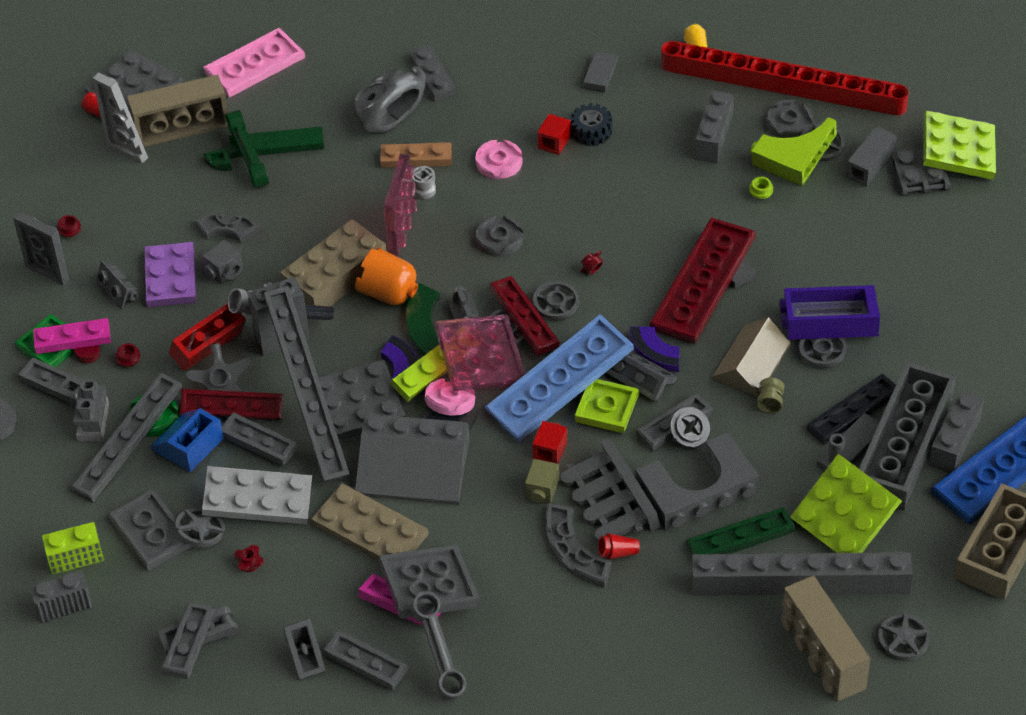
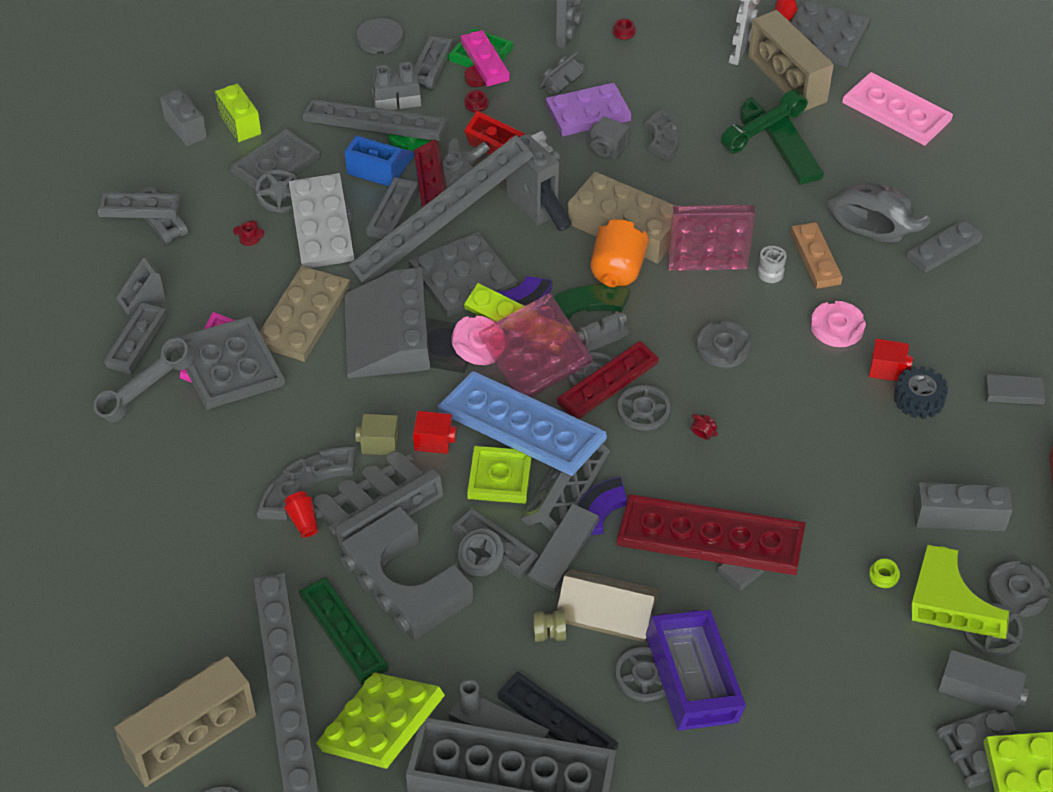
camera: 75 degrees right, 0 degrees up
(695, 374) = (563, 548): none -> dark grey tile

